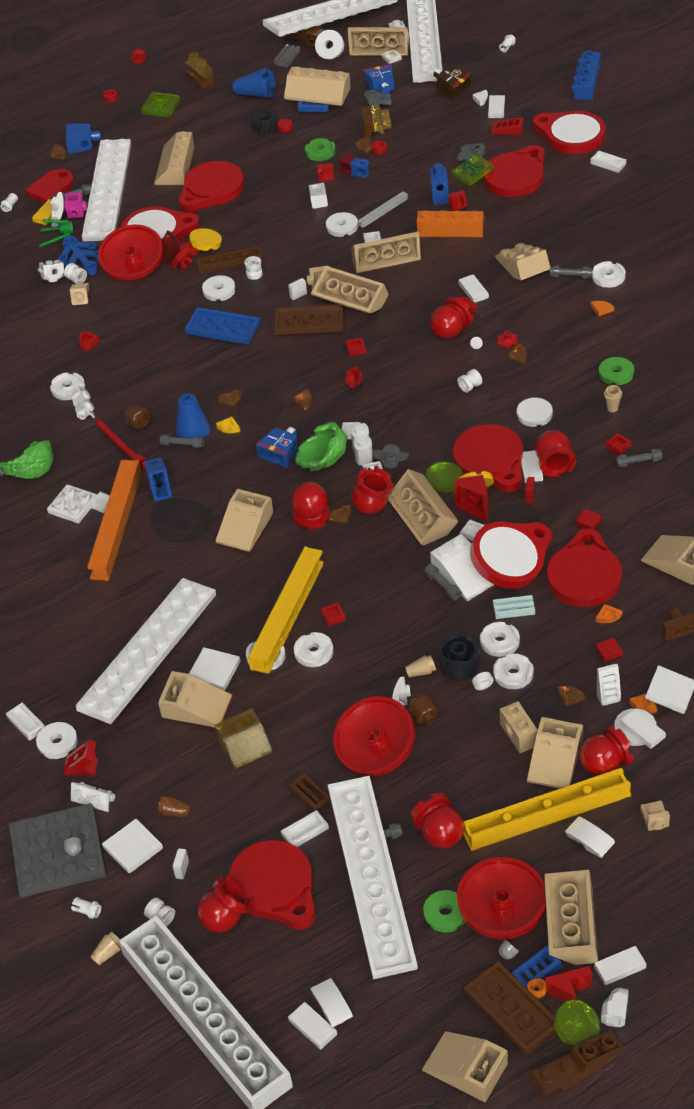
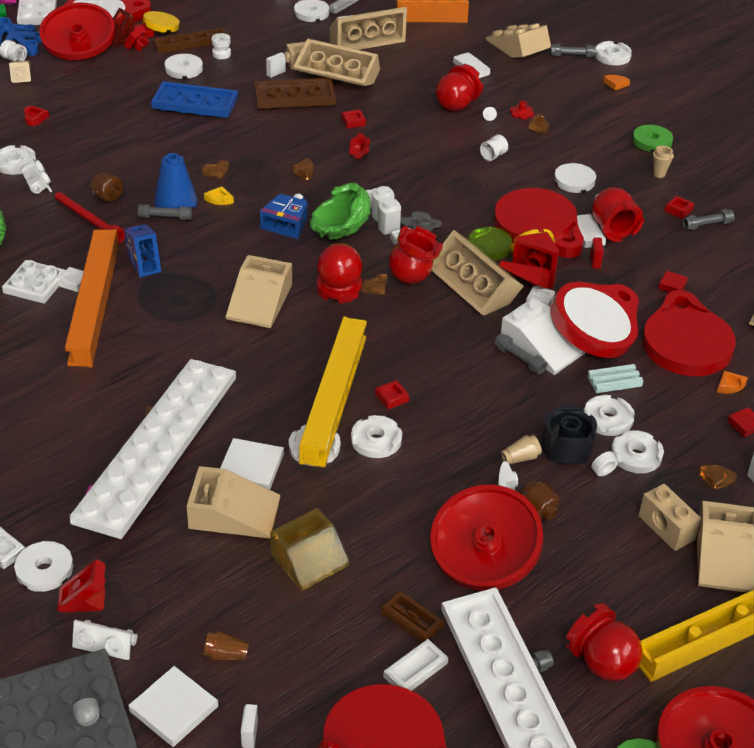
camera: 15 degrees left, 5 degrees down
(467, 511) = (535, 275): none -> red slope

